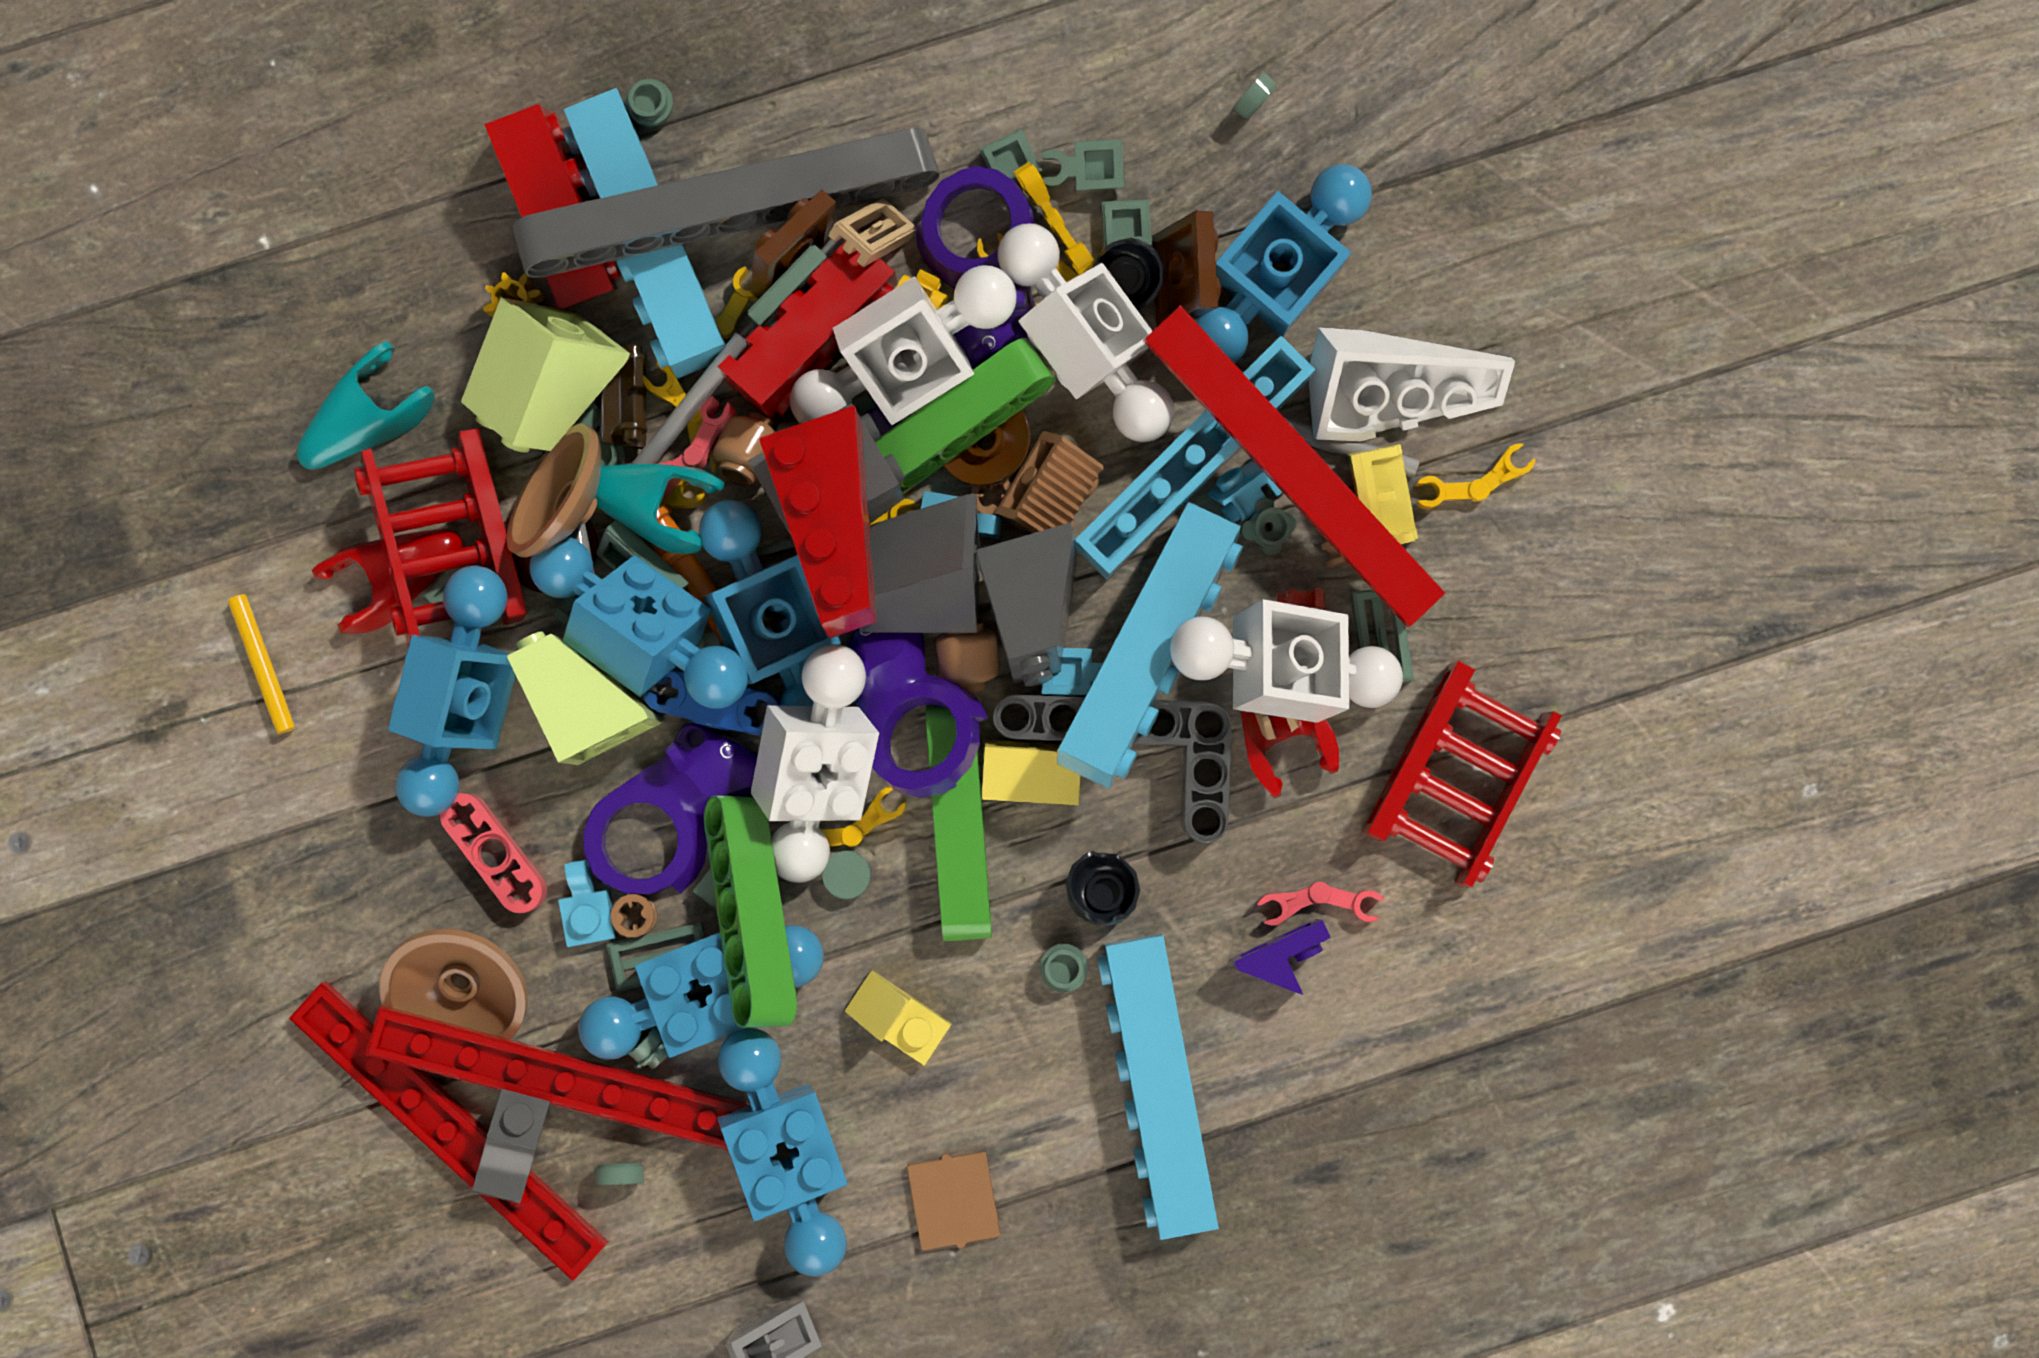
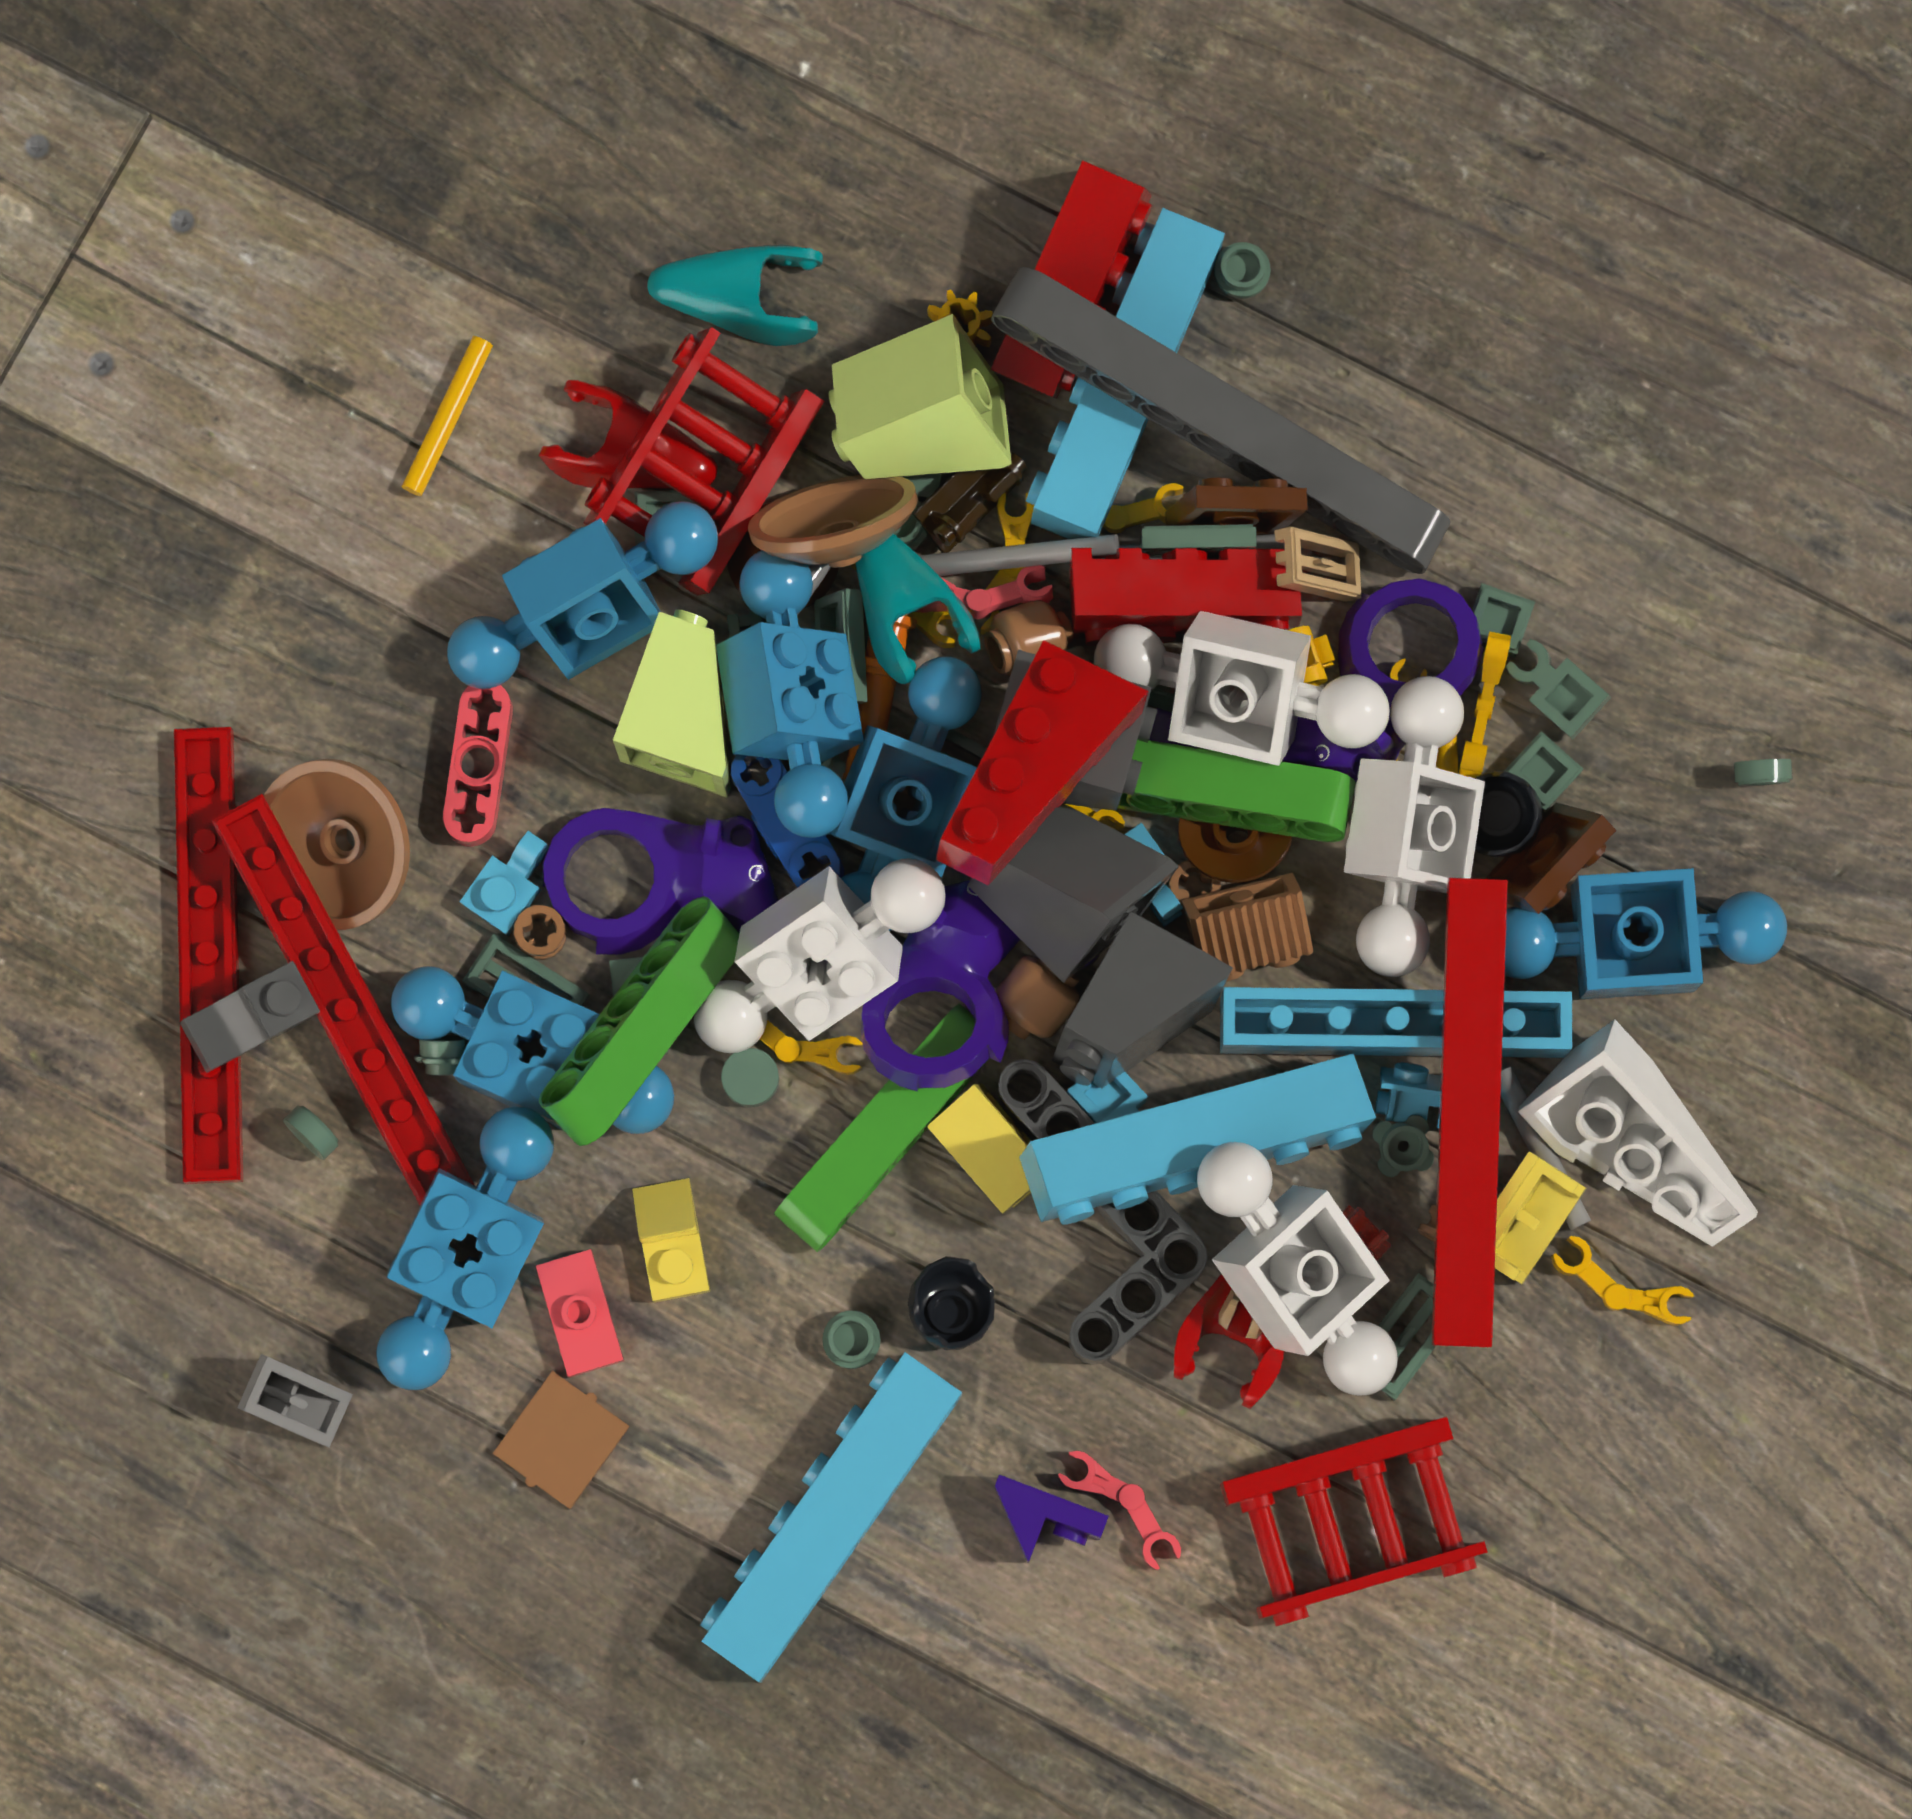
camera: 45 degrees right, 5 degrees down
(888, 1116) = (579, 1313): none -> coral plate

